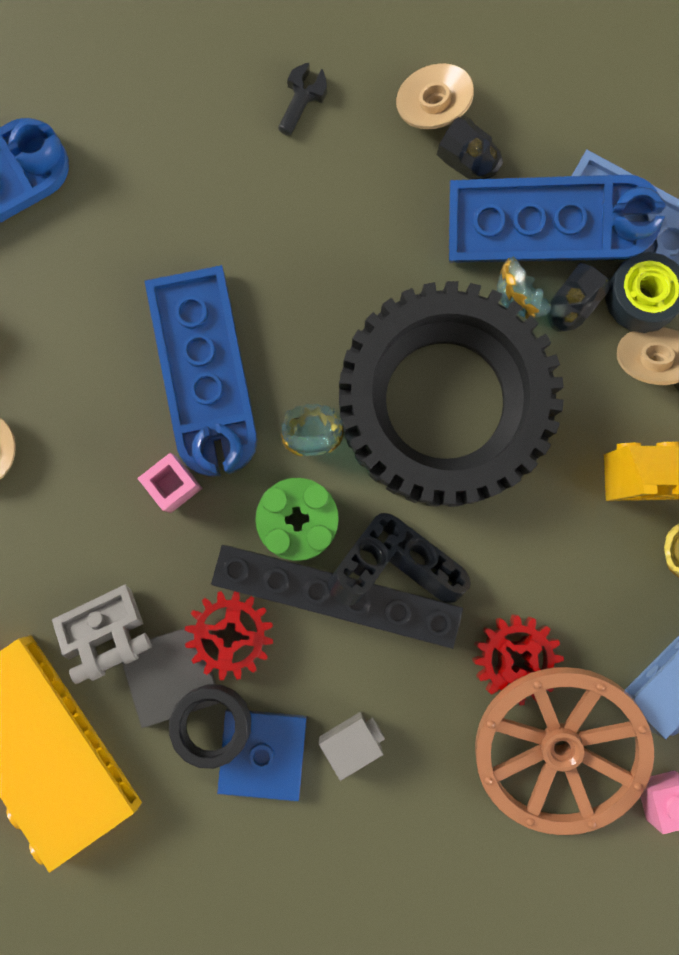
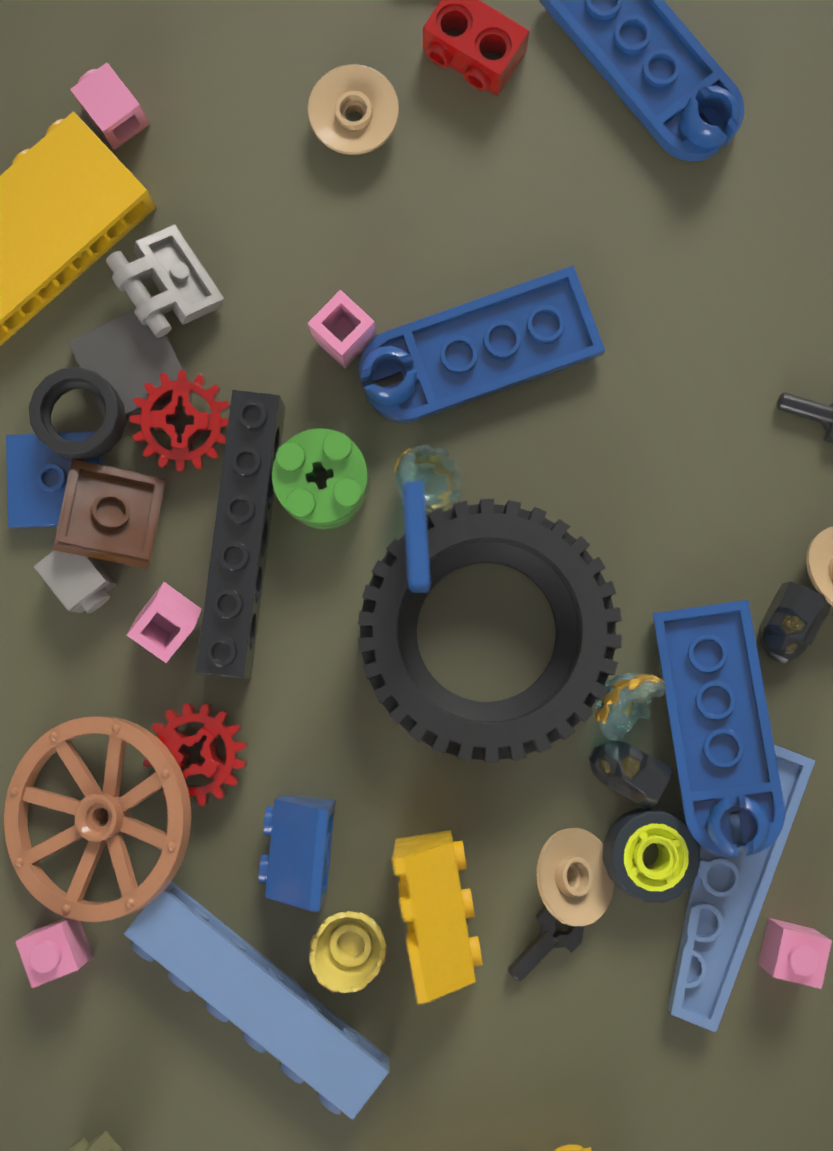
camera: 90 degrees right, 0 degrees up
(302, 708) = (109, 514): none -> reddish brown tile
(373, 436) = (416, 536): none -> blue tile
(397, 551) = (301, 597): black beam -> none
(403, 671) = (164, 622): none -> bright pink brick
(612, 580) = (299, 850): none -> blue slope

